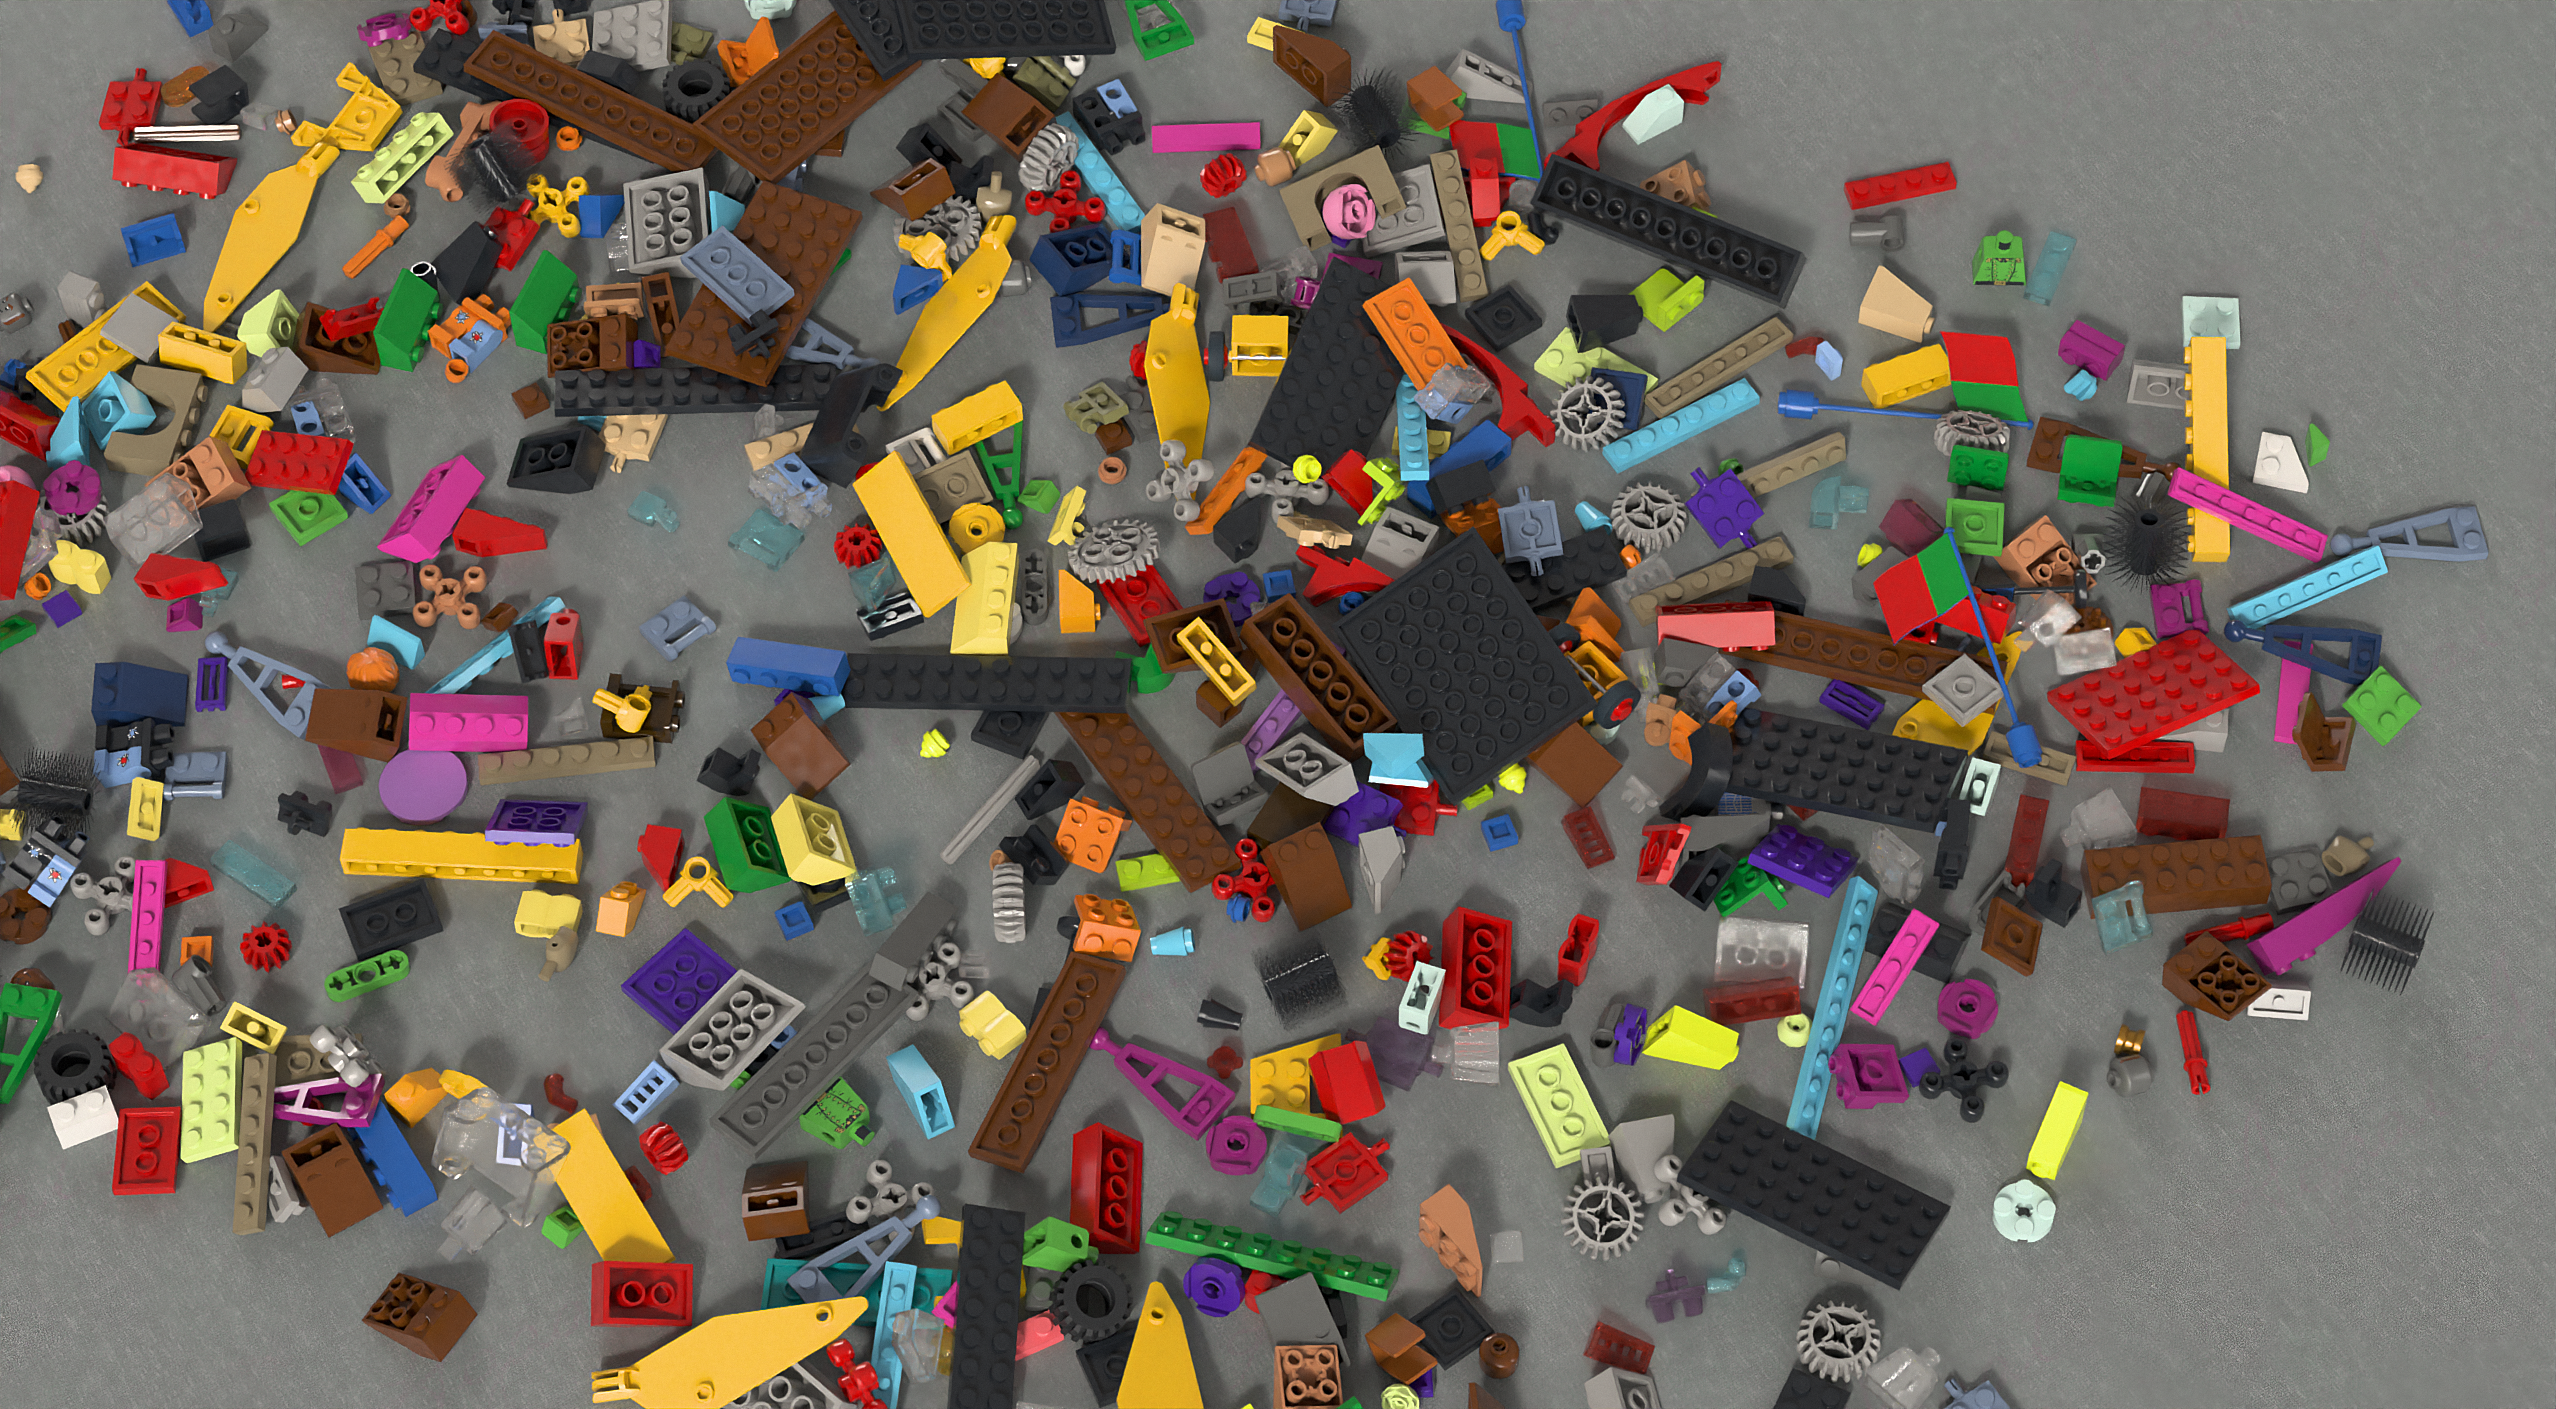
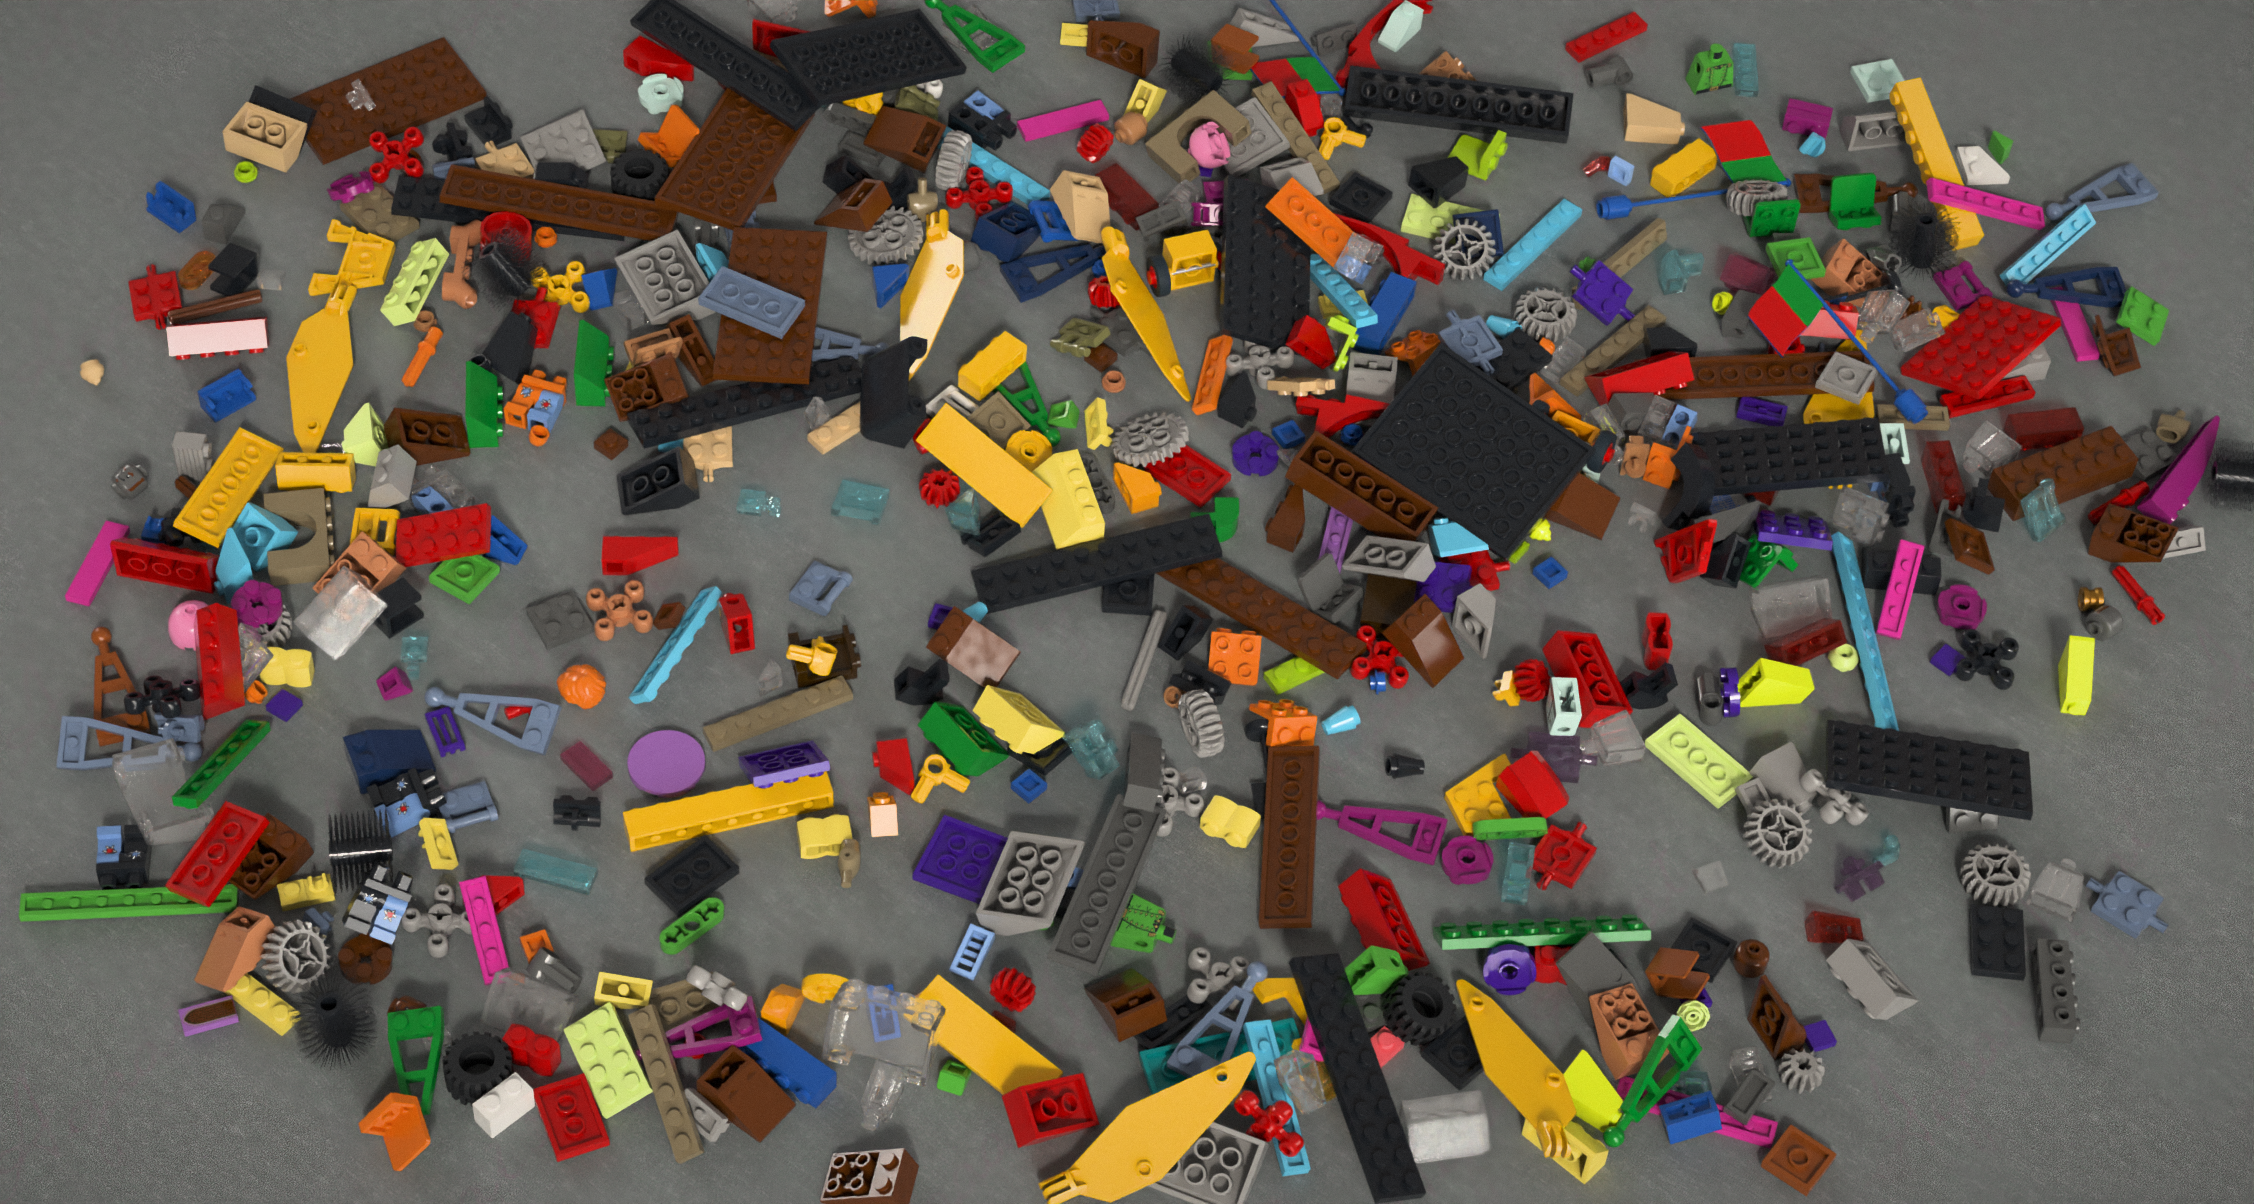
camera: 25 degrees left, 5 degrees down
(137, 327) = (251, 464): light grey tile -> none
(175, 577) = (376, 653): red slope -> none
(266, 946) = (595, 925): red gear -> none
(286, 121) = (297, 278): medium nougat plate -> none
(351, 320) = (437, 414): red hinge -> none
(357, 721) = (593, 725): reddish brown slope -> none
(402, 645) = (595, 655): medium azure slope -> none
(432, 510) = (573, 546): dark pink slope -> none
(468, 722) = (687, 703): dark pink slope -> none
(528, 651) = (708, 635): black hinge -> none
(555, 1095) = (897, 974): clear red arm -> none
(646, 355) = (694, 384): dark purple tile -> none
(764, 328) = (795, 334): black hips -> none
(788, 666) = (931, 591): blue brick -> none
(791, 491) = (866, 458): clear hips -> none
(921, 1091) = (1199, 886): medium azure slope -> none
(927, 251) = (891, 250): yellow axle -> none
(934, 744) = (1075, 622): neon yellow plate -> none
(1165, 627) = (1251, 485): reddish brown slope -> none
(1180, 480) = (1178, 373): light grey gear -> none
(1216, 661) = (1282, 496): yellow brick -> none
(1222, 1054) = (1428, 794): clear red plate -> none
(1299, 978) = (1461, 717): black piece -> none
(1306, 469) = (1274, 339): neon yellow plate -> none
(1393, 751) = (1452, 528): medium azure slope -> none
(1449, 1230) = (1677, 880): nougat slope -> none
(1461, 487) = (1399, 324): black brick -> none
(1587, 815) = (1616, 548): clear red slope -> none
(1718, 368) = (1541, 196): dark tan plate -> none
(1867, 1075) = (1916, 675): magenta plate -> none
(2023, 1195) = (2079, 731): light aqua plate -> none

